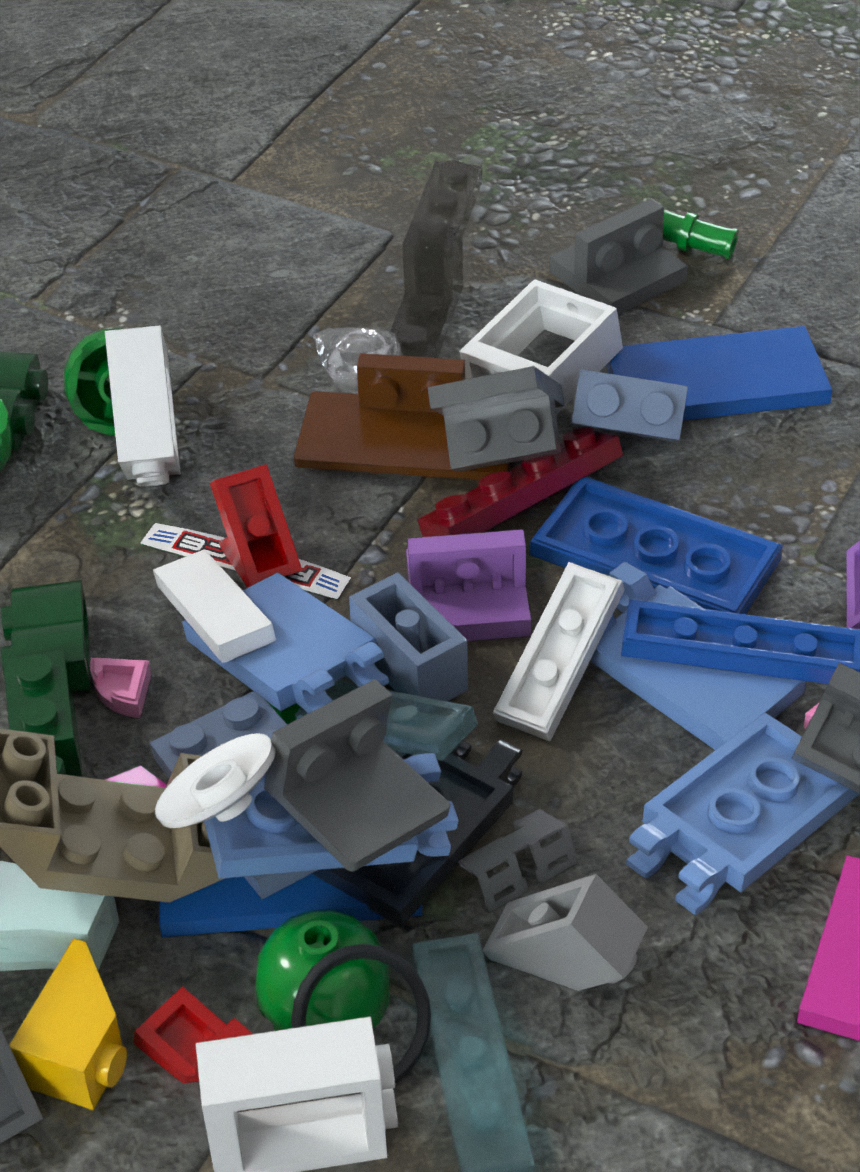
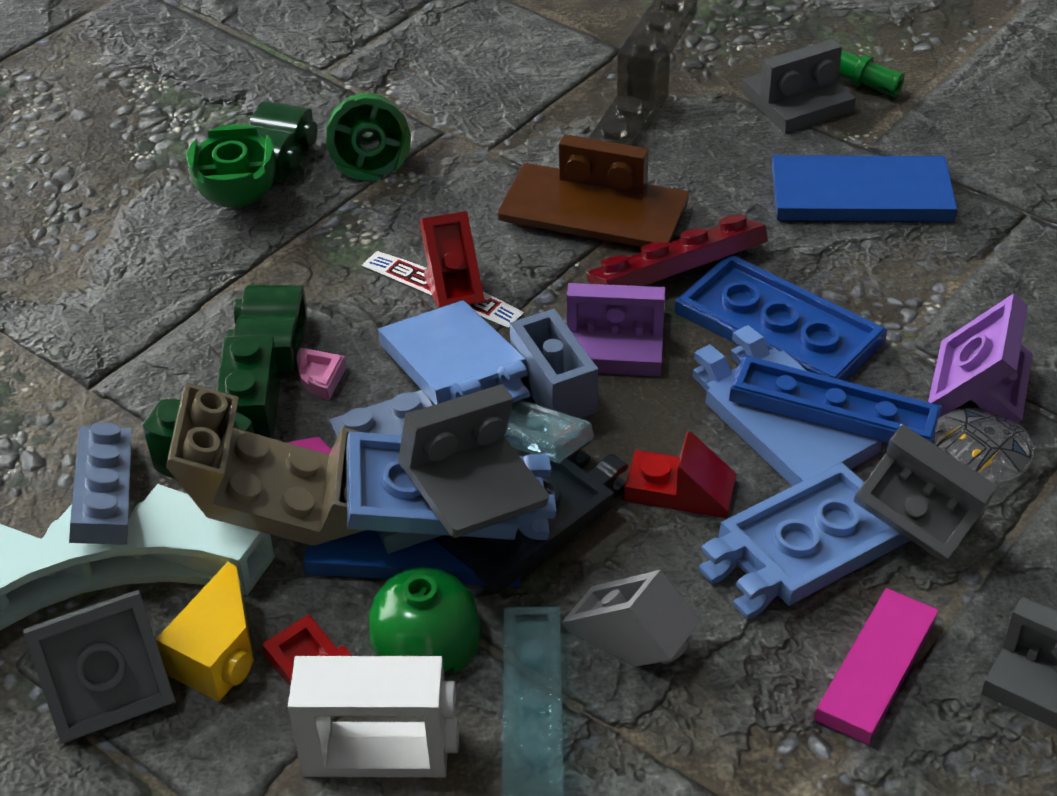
camera: 10 degrees right, 0 degrees up
(142, 404) = (379, 153): white window -> none
(214, 606) = (404, 319): white tile -> none
(216, 783) = (356, 451): white dish -> none
(341, 349) = (551, 128): clear piece -> none
(396, 962) = (483, 620): black tyre -> none
(499, 417) = (666, 196): dark grey bracket -> none
(528, 832) = (620, 532): dark grey piece -> none
(551, 309) = (678, 158): white window -> none
(559, 651) = (677, 388): white tile -> none
(594, 762) = (689, 483): none -> red slope
(629, 405) = (778, 201): sand blue brick -> none

